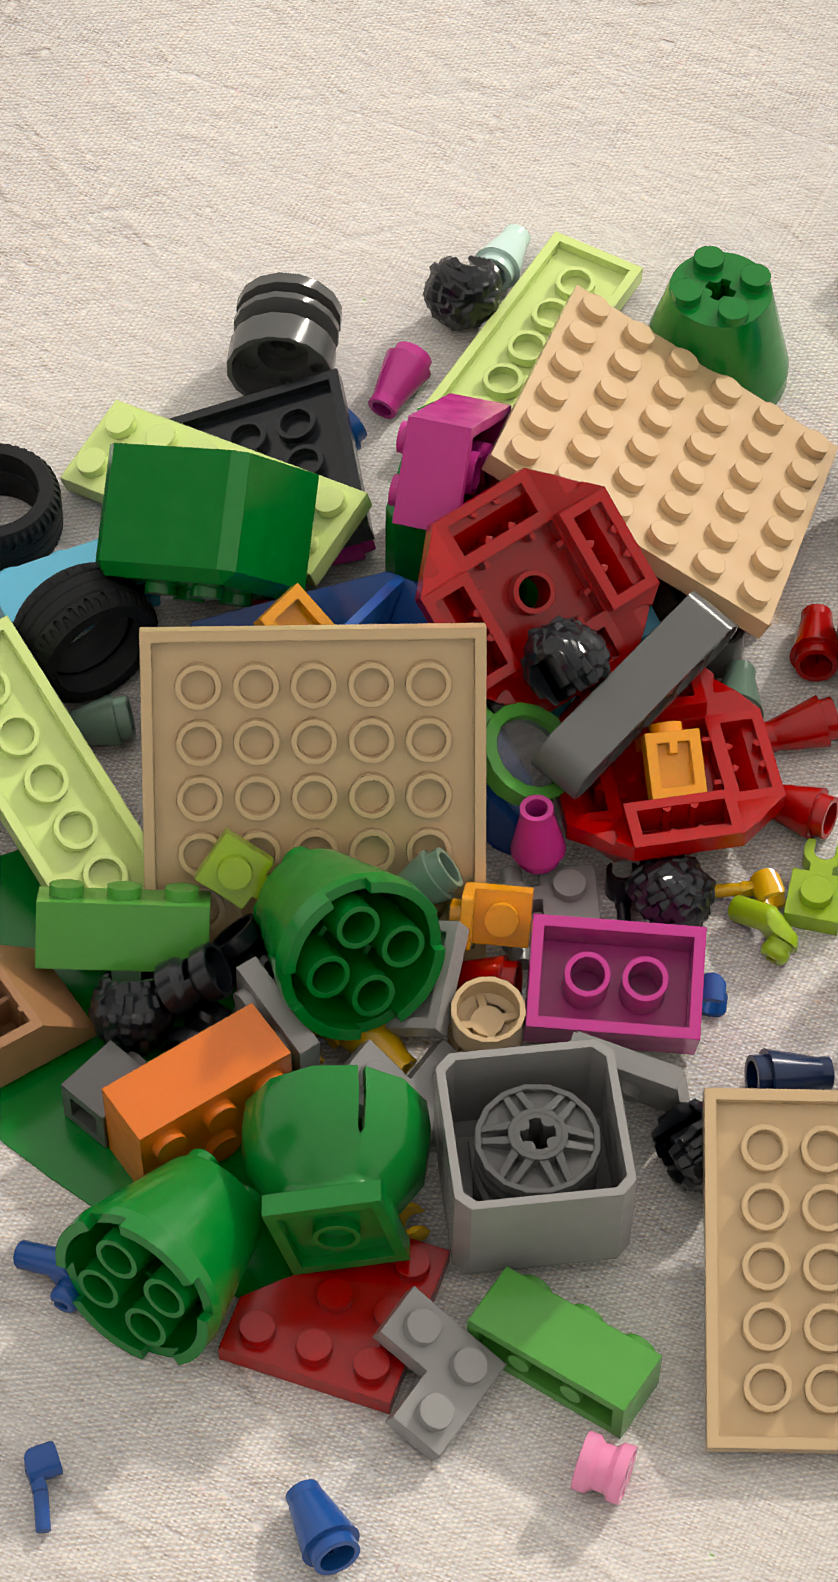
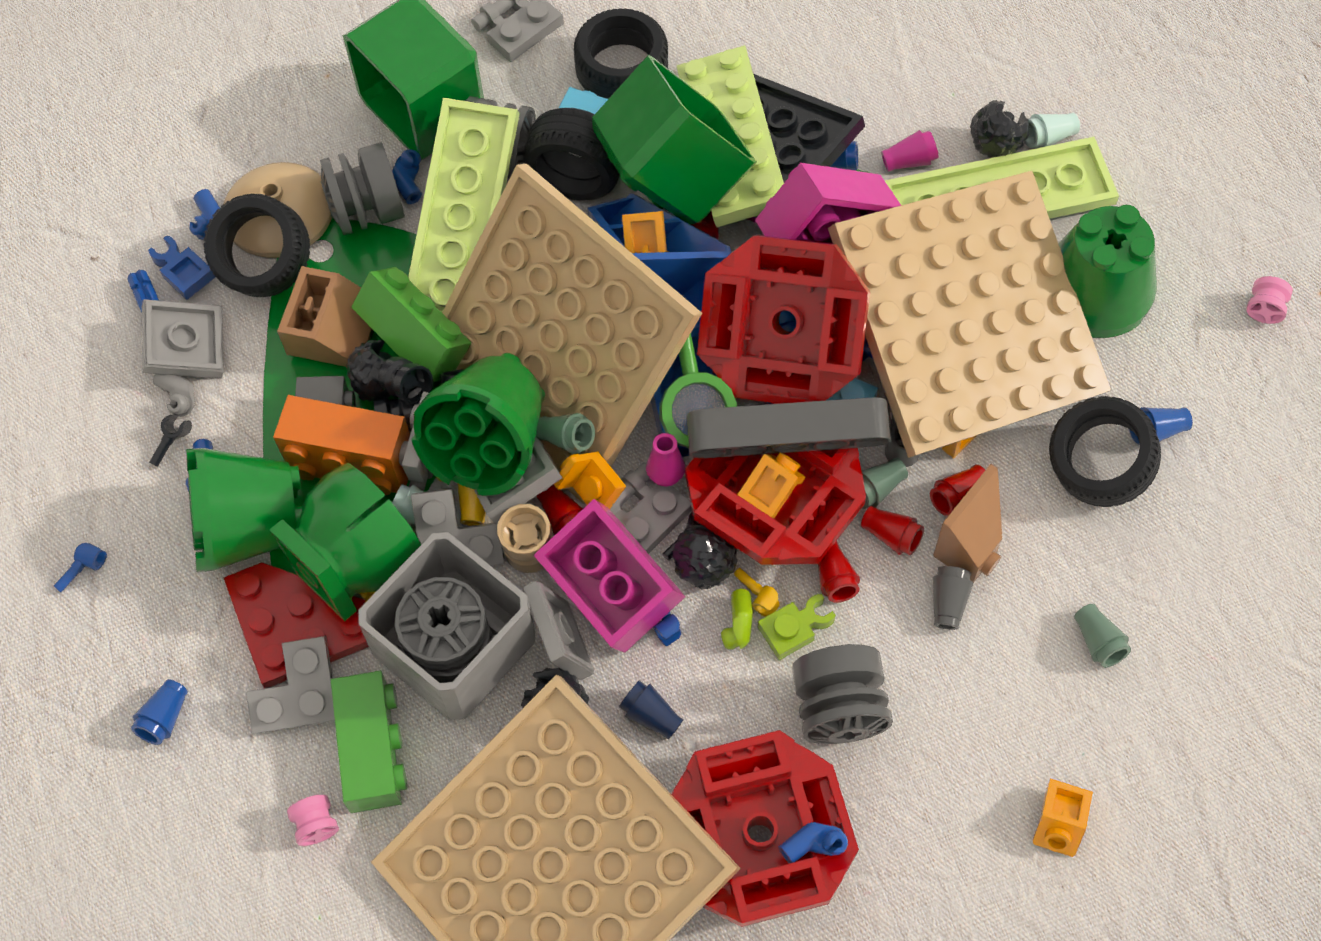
camera: 50 degrees right, 10 degrees up
(235, 868) = (485, 338): lime plate -> none
(282, 332) = (866, 77): dark grey wheel -> none
(564, 659) = (758, 373): black piece -> none

